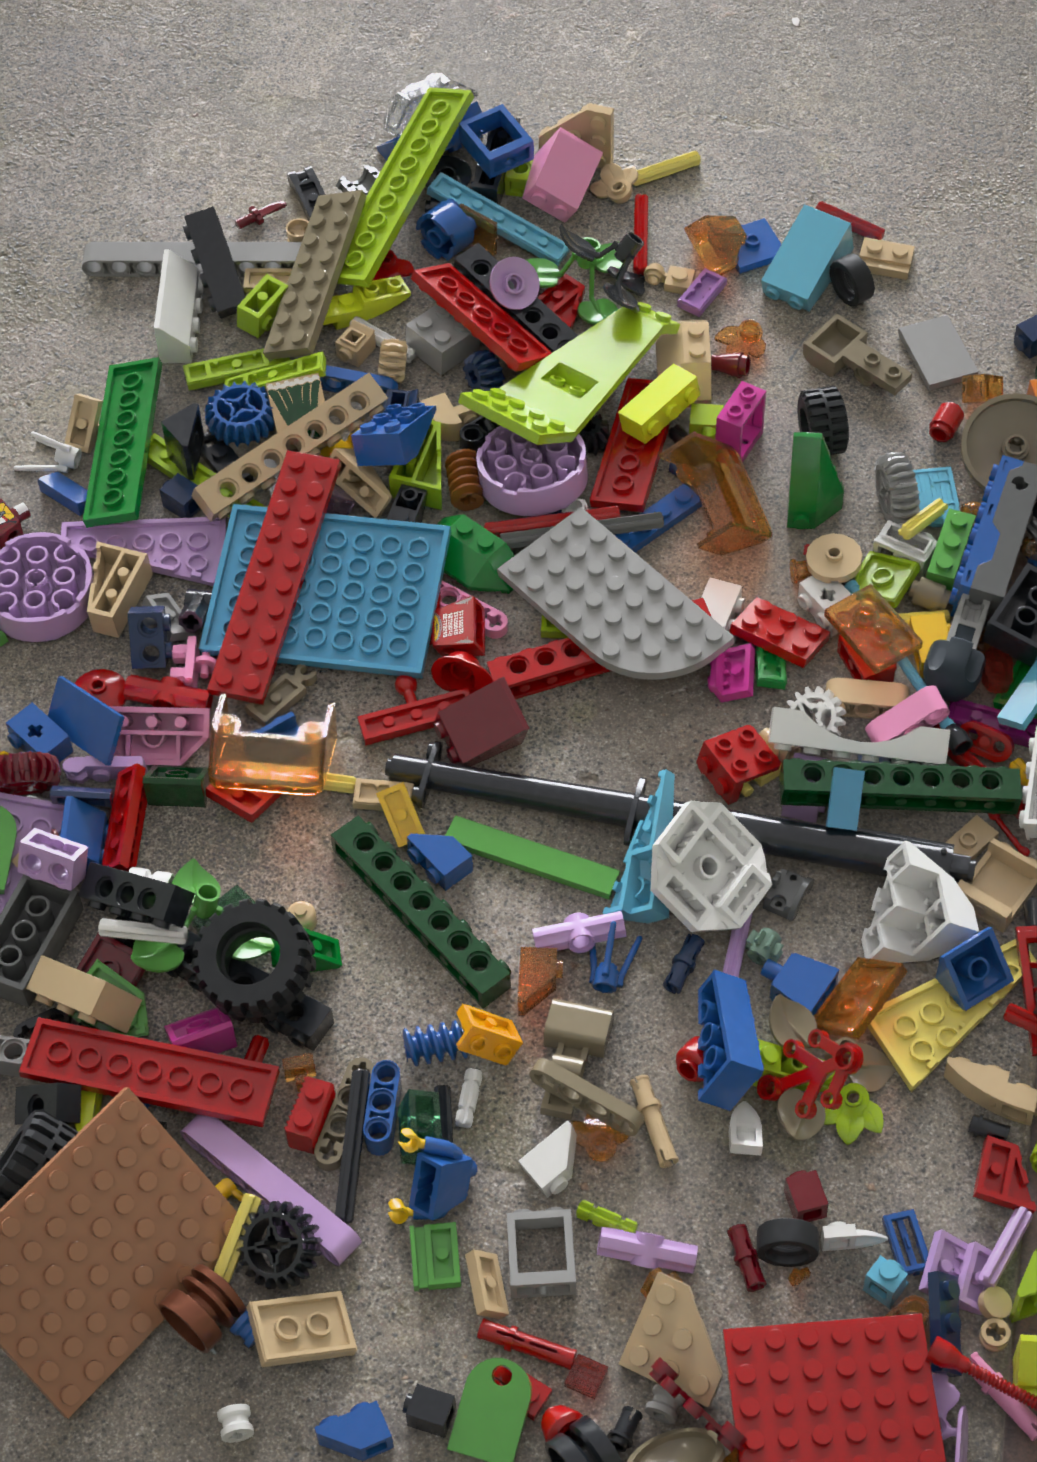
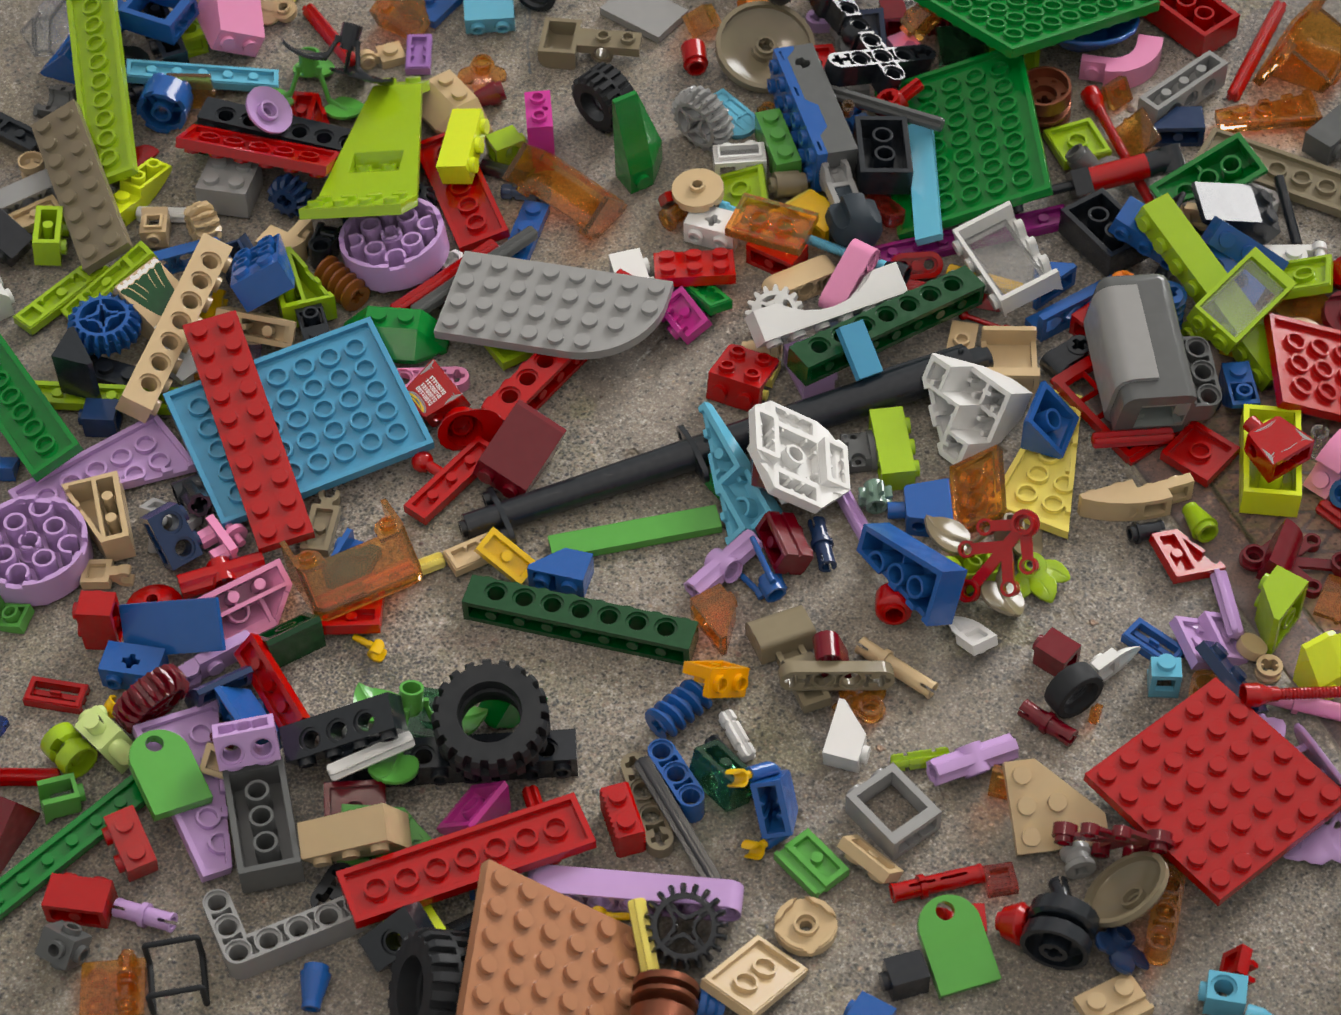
camera: 35 degrees left, 5 degrees down
(36, 678) = (98, 618): none -> red brick
(80, 638) = (102, 572): none -> tan plate
(238, 836) = (376, 649): none -> yellow hand
(298, 1068) = (586, 791): clear orange tile -> none
(384, 1294) = (805, 913): none -> tan plate
(599, 1070) = (829, 647): none -> dark red beam
(647, 943) = (784, 543): none -> dark red brick
(818, 910) = (894, 447): none -> lime brick
(923, 519) = (740, 130): light yellow axle -> none

